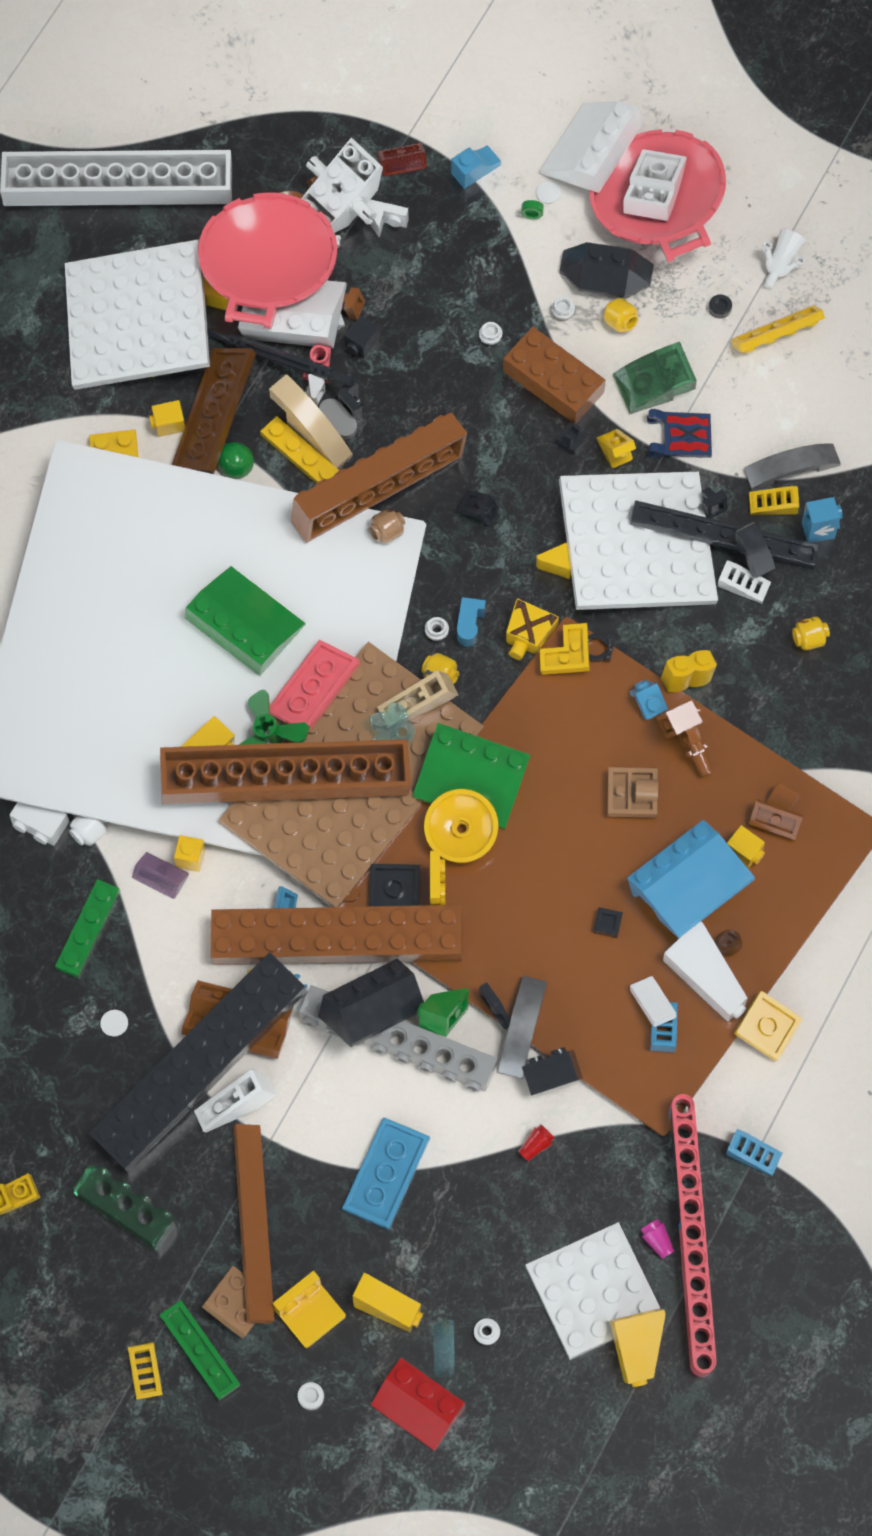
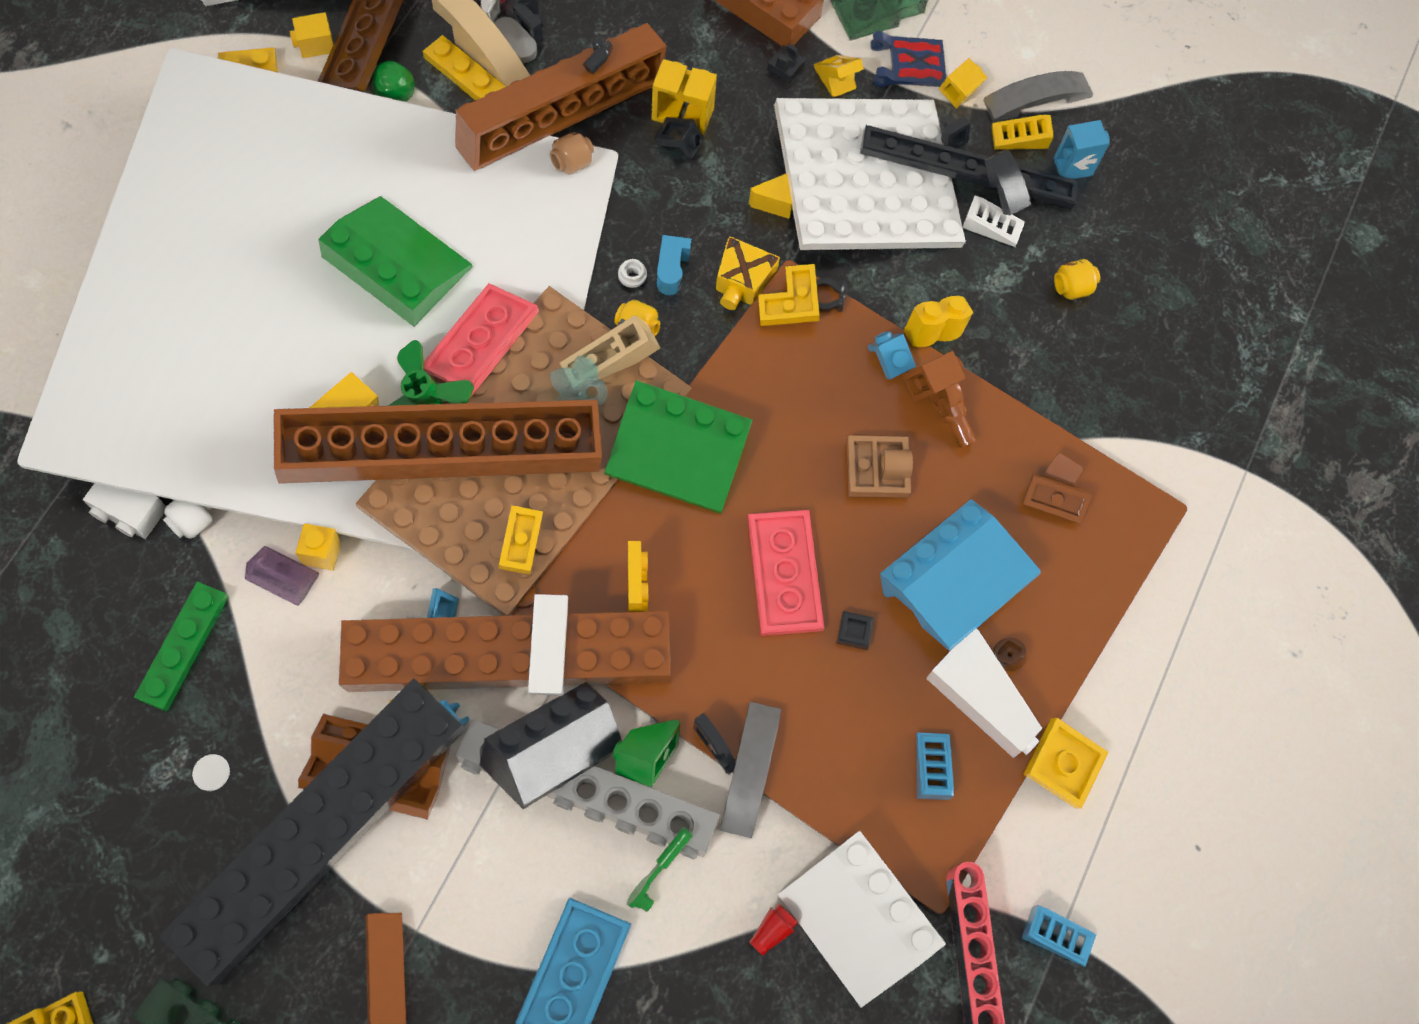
camera: 10 degrees left, 0 degrees up
(236, 1100) = (369, 879): white slope -> none
(347, 849) = (520, 540): none -> yellow plate
(369, 929) = (548, 645): none -> white tile
(394, 885) = (586, 582): black tile -> none
(411, 447) = (602, 51): none -> black arm
(436, 1118) = (639, 897): none -> green piece
(457, 809) = (662, 488): yellow dish -> none
(477, 466) = (678, 85): none -> yellow piece
(551, 1072) = (792, 832): black brick -> none
(554, 876) = (785, 573): none -> coral tile
(601, 1135) = (861, 919): none -> white slope
(653, 1001) = (919, 734): white tile -> none
(724, 456) = (962, 83): none -> yellow brick
(747, 846) = (1026, 530): yellow brick -> none

